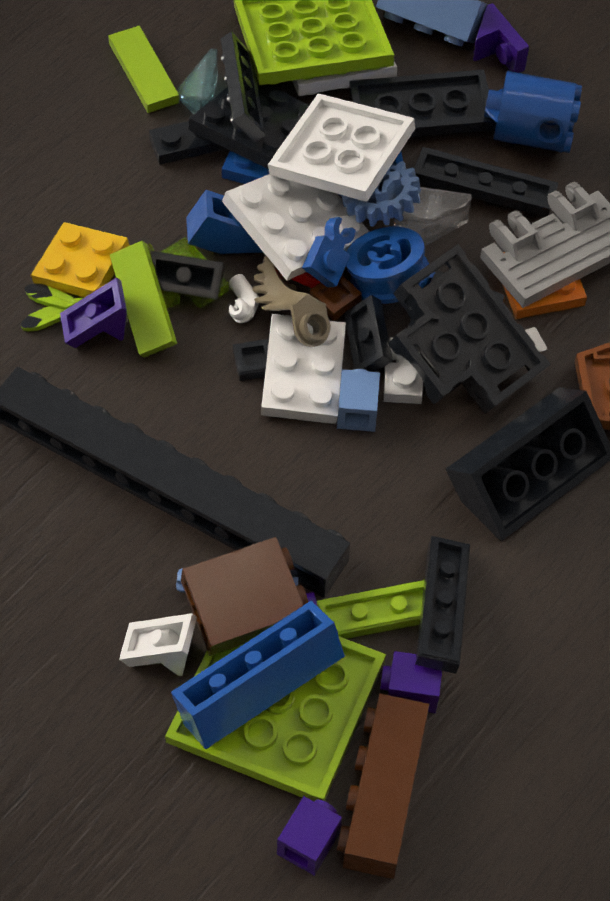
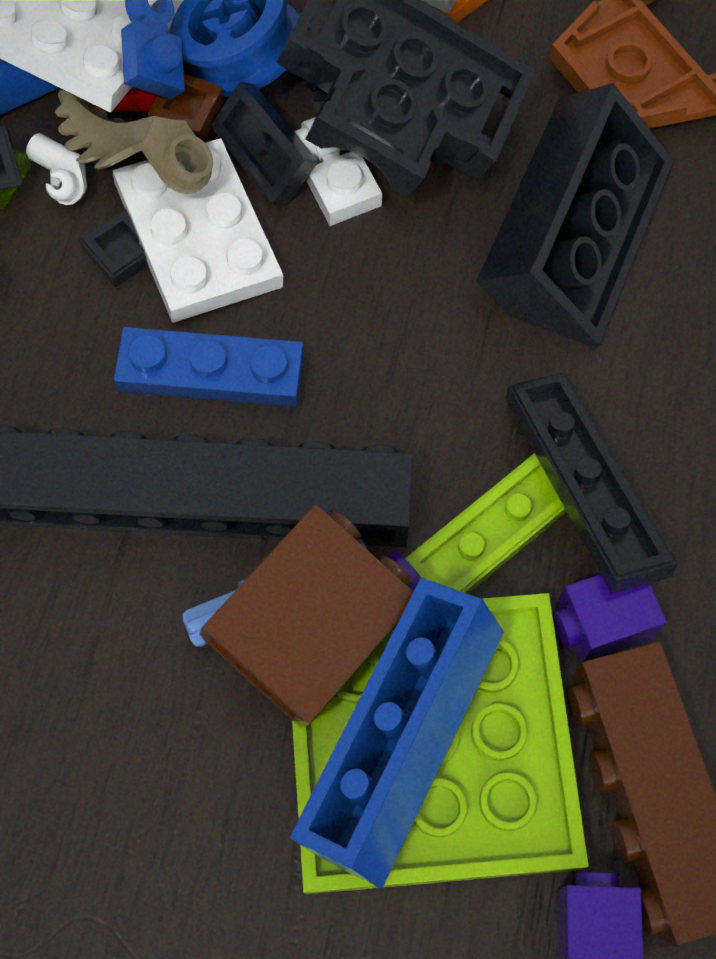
camera: 25 degrees left, 10 degrees up
(159, 641) = (215, 745): white slope -> none
(268, 448) = (209, 366): none -> blue plate
(358, 400) = (301, 237): medium blue brick -> none

